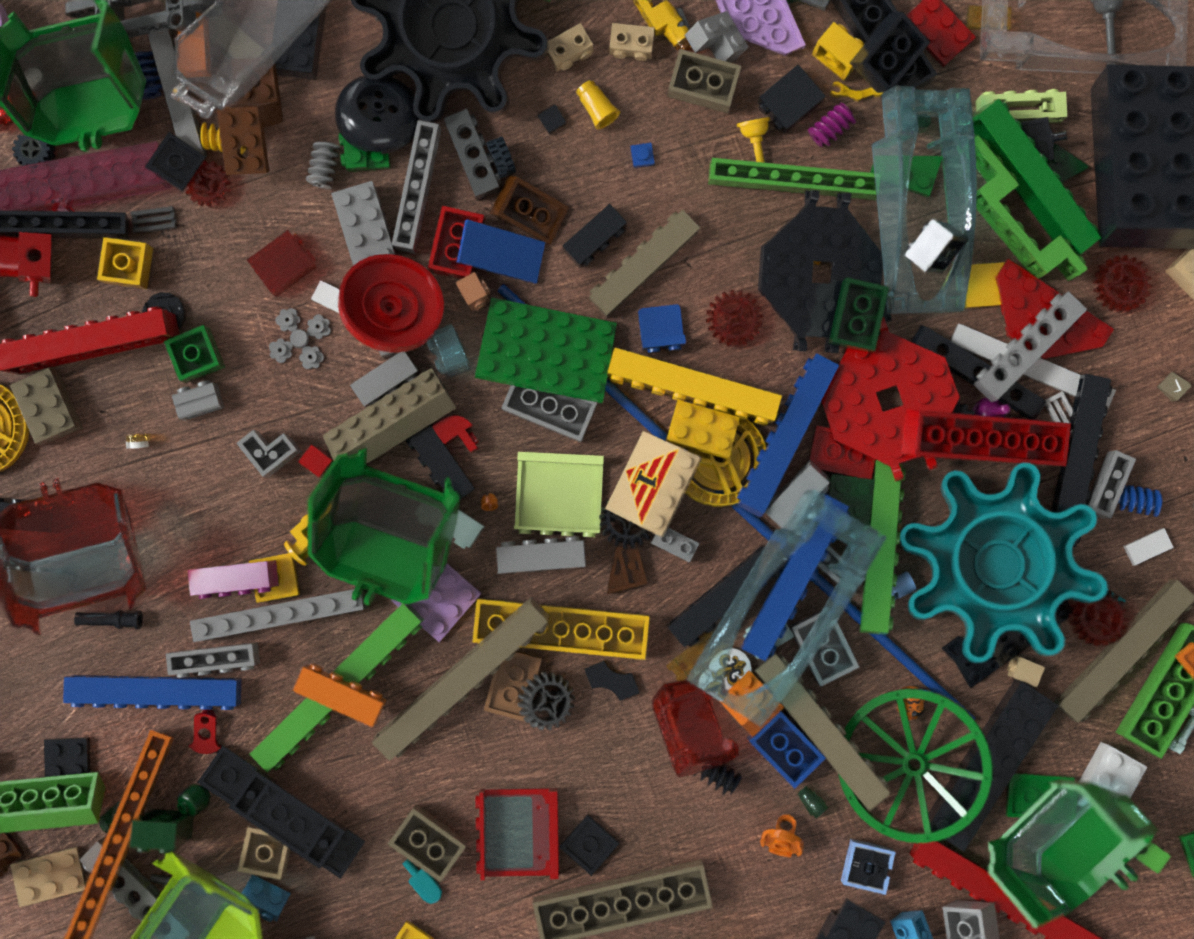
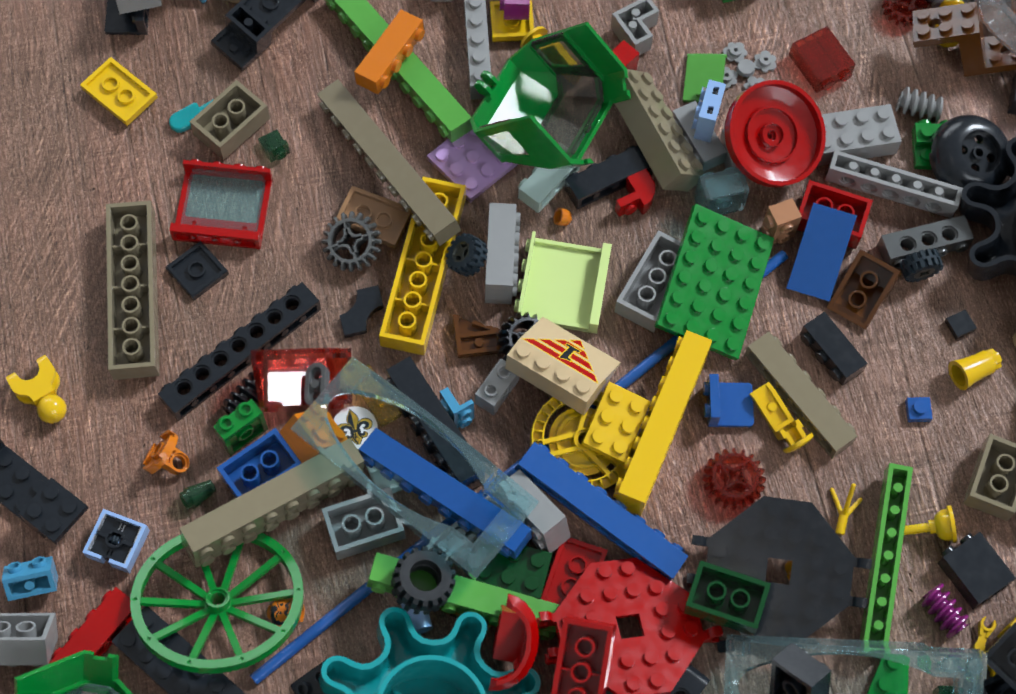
camera: 90 degrees right, 20 degrees down
(315, 378) = (699, 71): none -> bright green container
(362, 368) = (708, 110): none -> light blue piece
(446, 793) = (274, 146): none -> clear green bracket
(554, 588) = (466, 254): none -> black wheel
(673, 279) = (779, 418): none -> yellow piece
(699, 710) = (314, 384): none -> dark grey plate
(705, 584) = (460, 414): none -> dark azure bracket
(722, 844) = (237, 362): none -> black brick
(750, 774) = (241, 426): none -> green plate
(753, 218) = (843, 514): none -> yellow plant
(902, 574) = (431, 563): none -> black tyre
(922, 495) = (515, 641): none -> red piece

